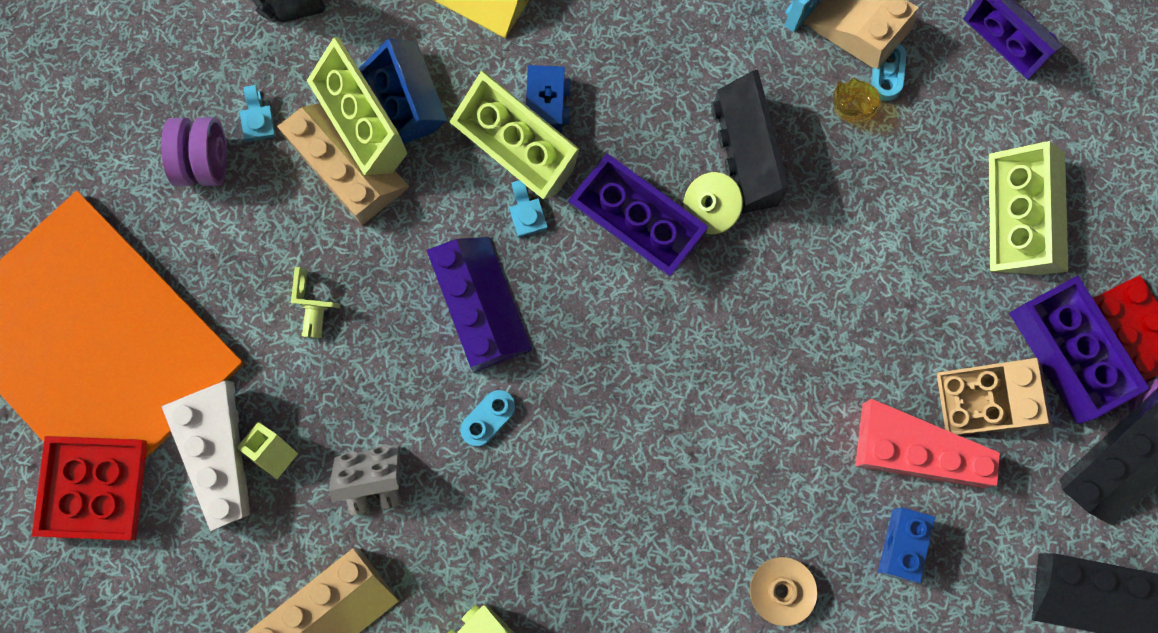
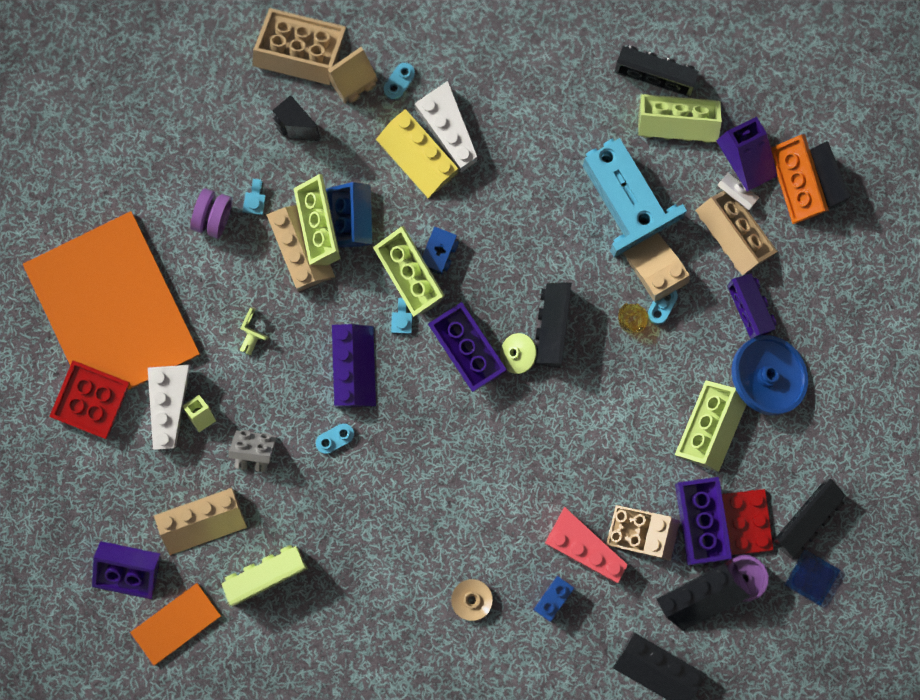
camera: 20 degrees right, 5 degrees up
(1082, 112) = (769, 375): none -> blue dish

